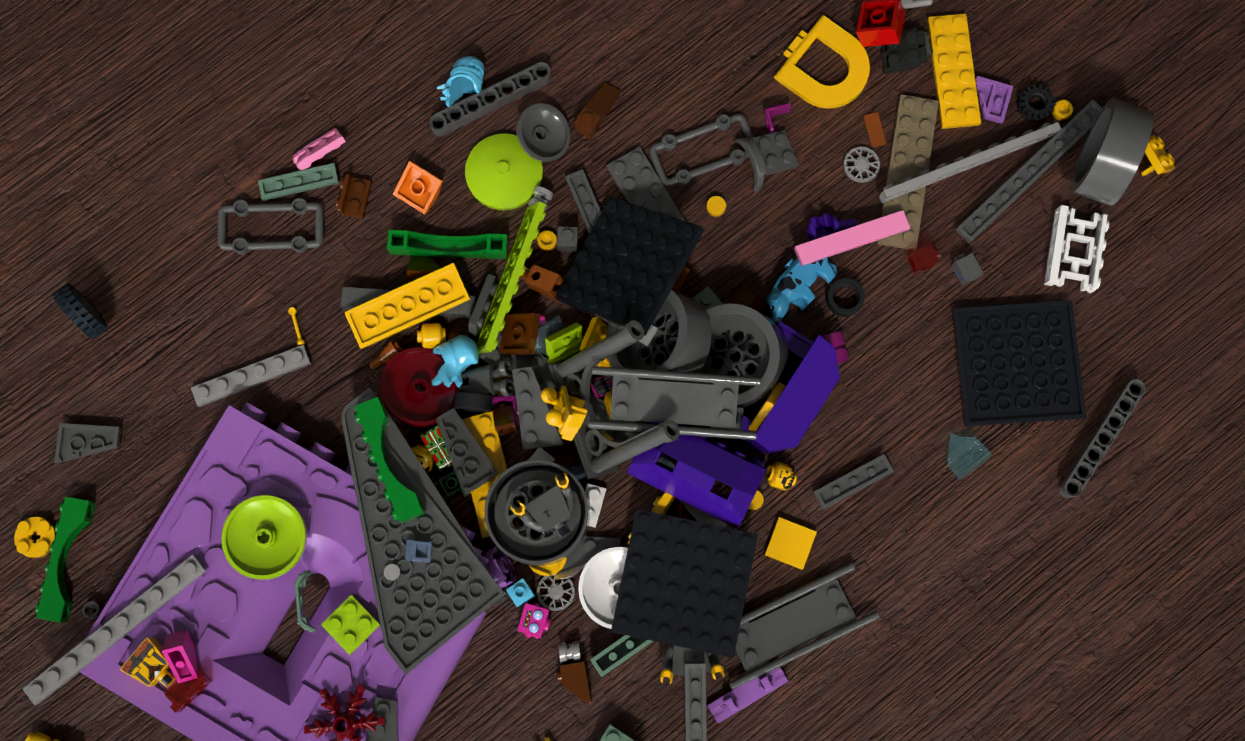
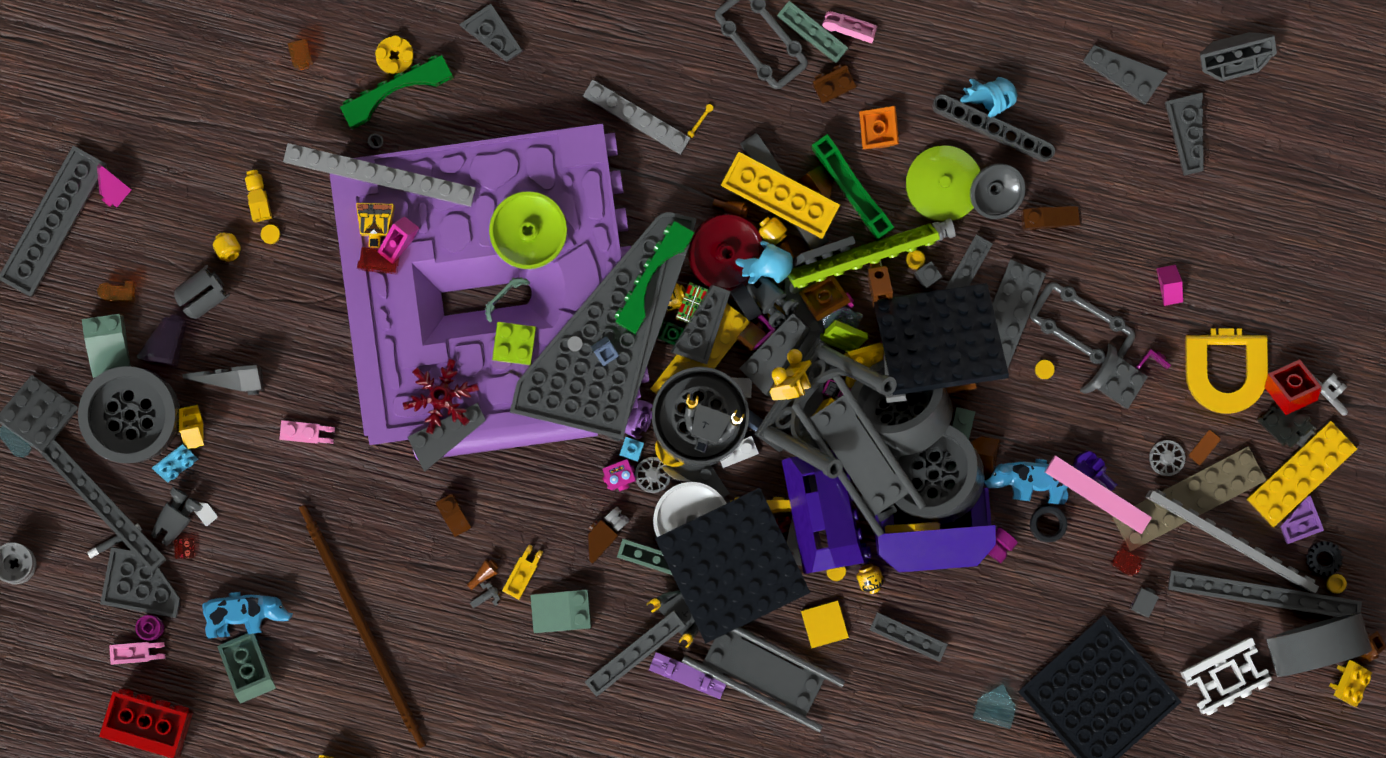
camera: 50 degrees right, 5 degrees up
(724, 57) = (1170, 285): none -> dark pink slope

